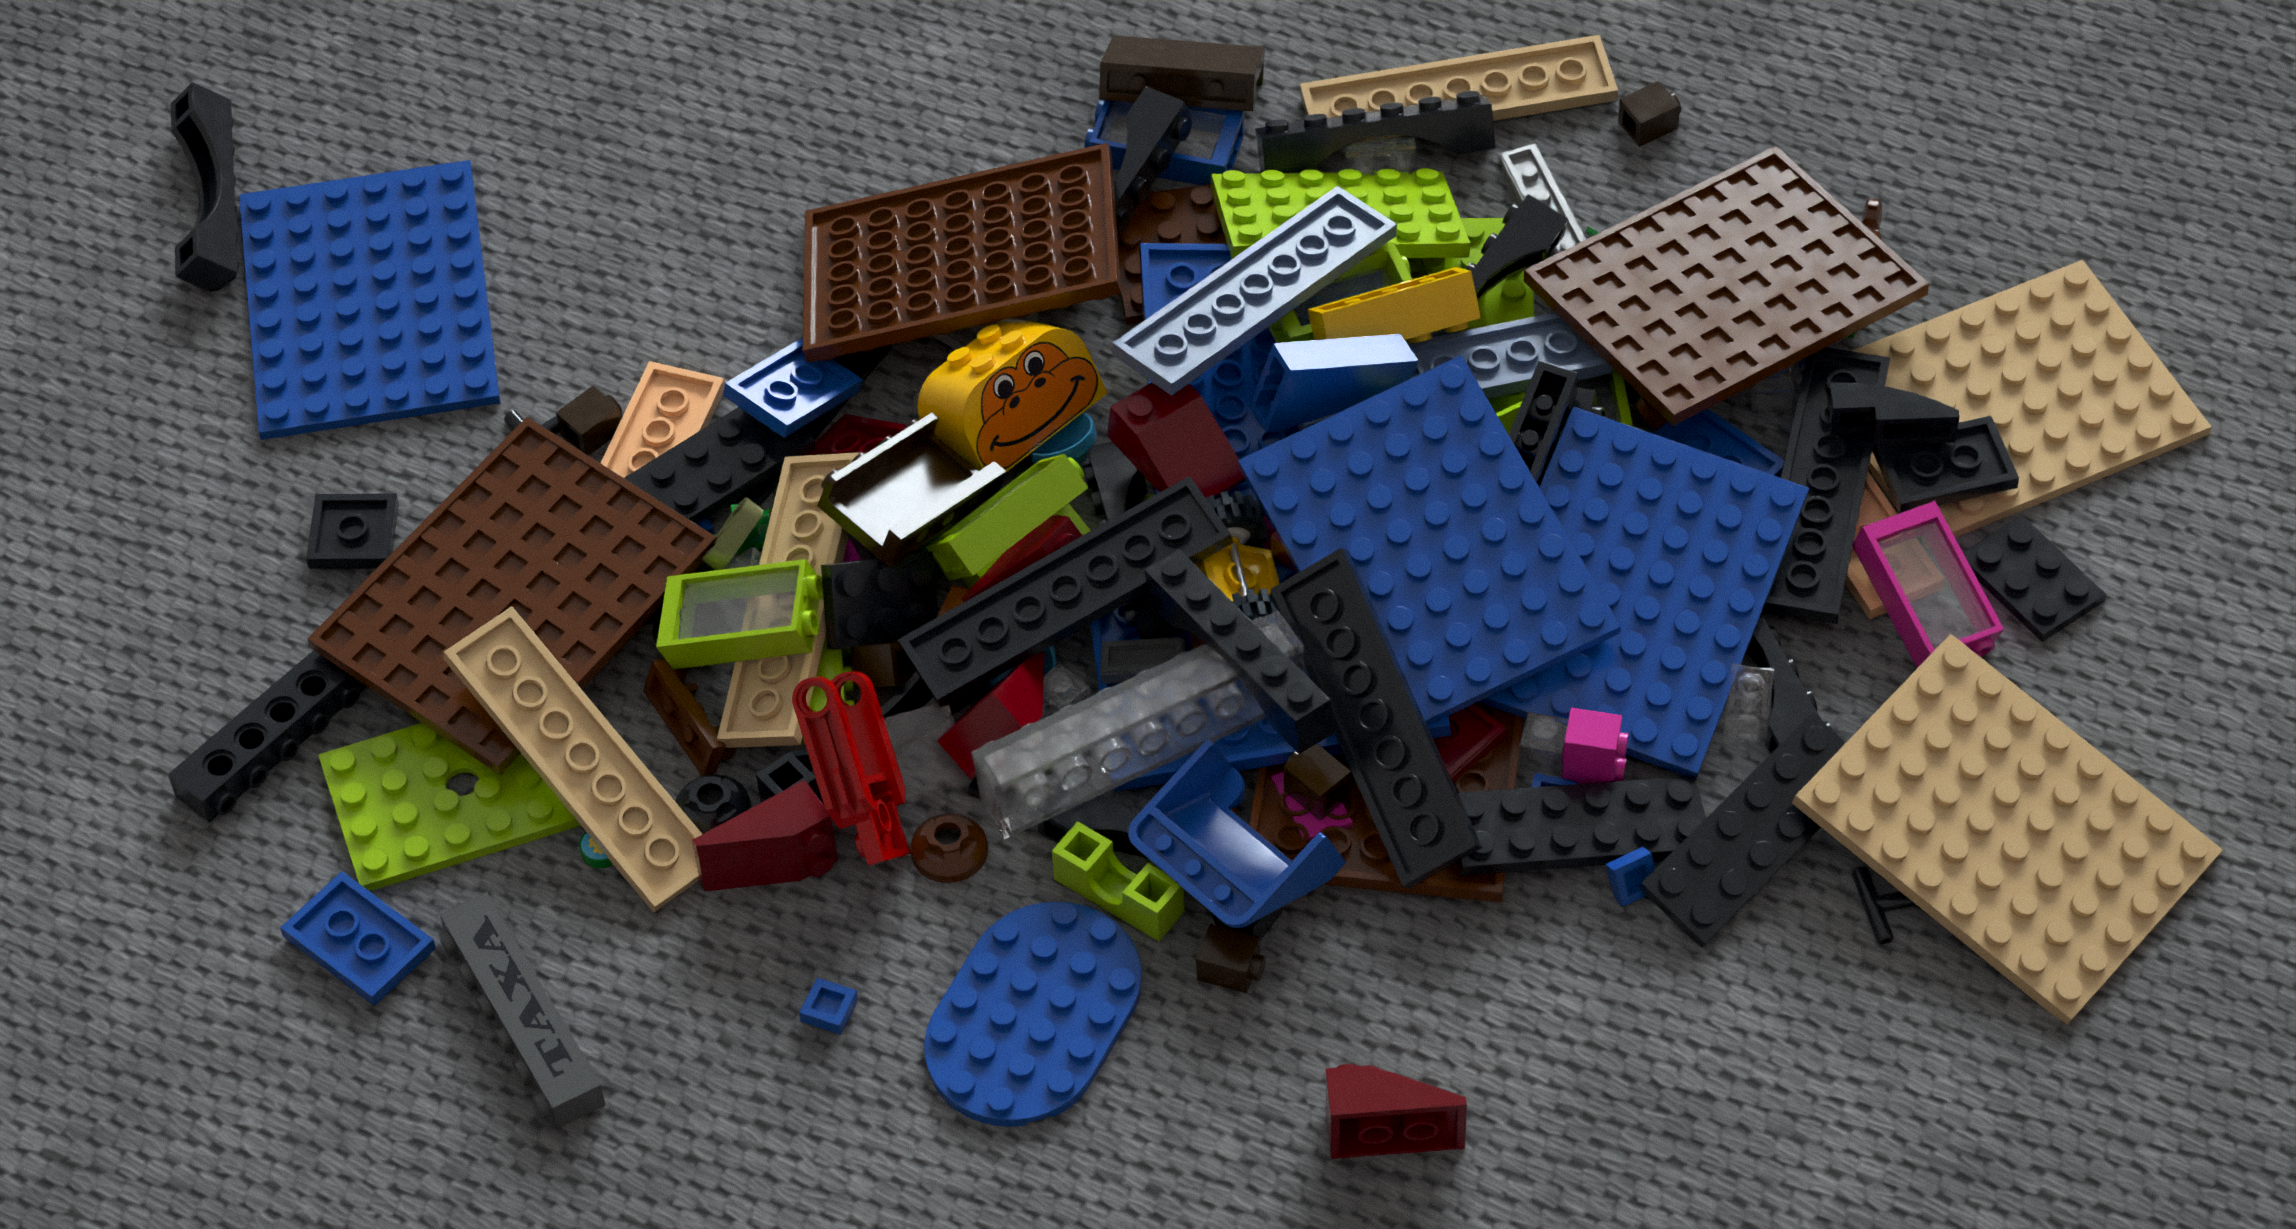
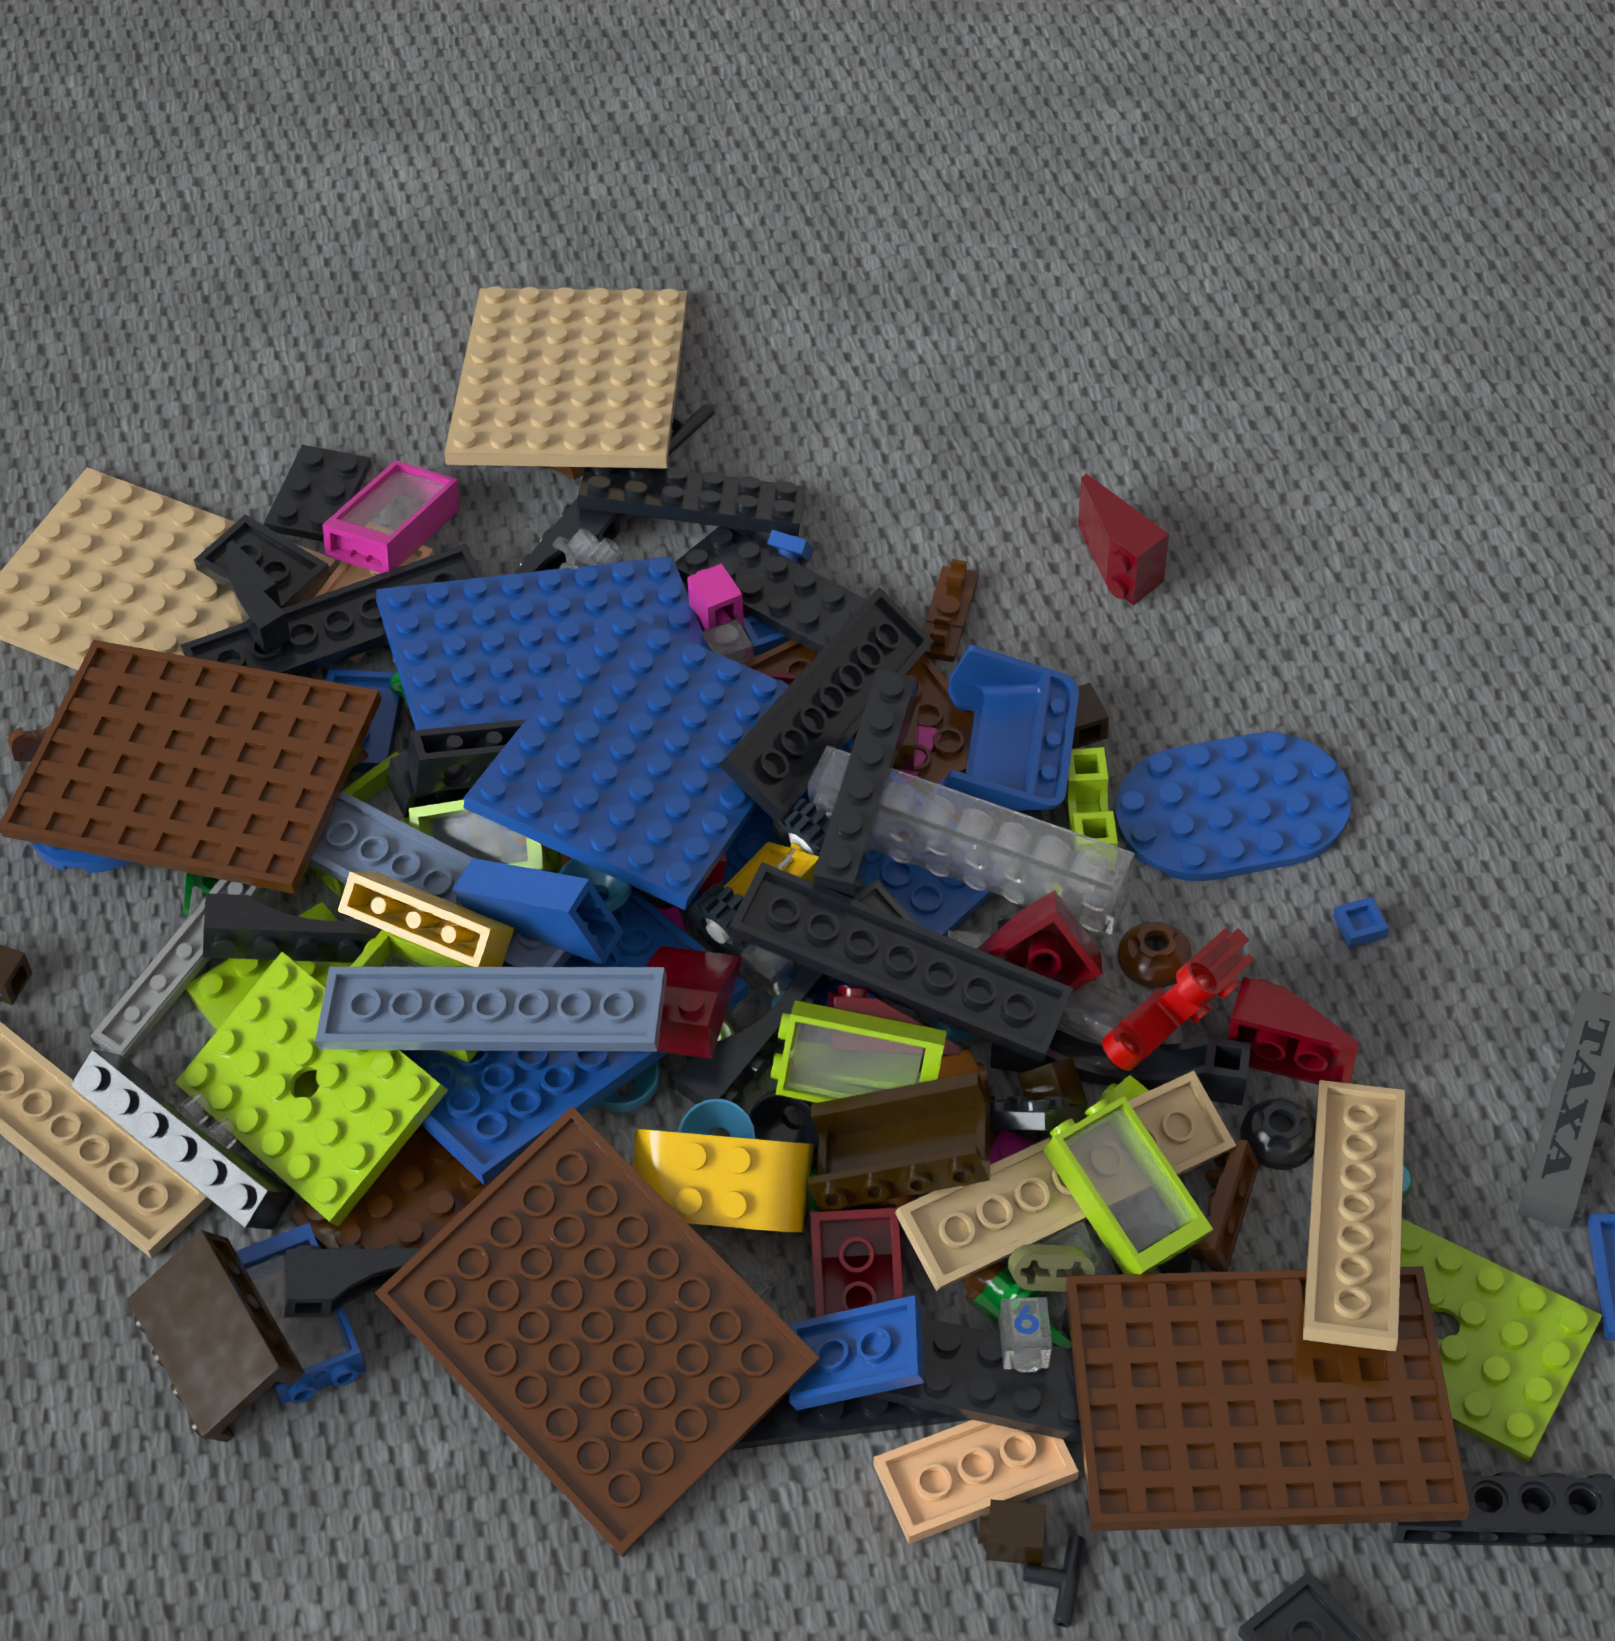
camera: 130 degrees left, 0 degrees up
(699, 482) = (1025, 1334): none -> clear brick
(1447, 955) = (950, 610): none -> reddish brown plate

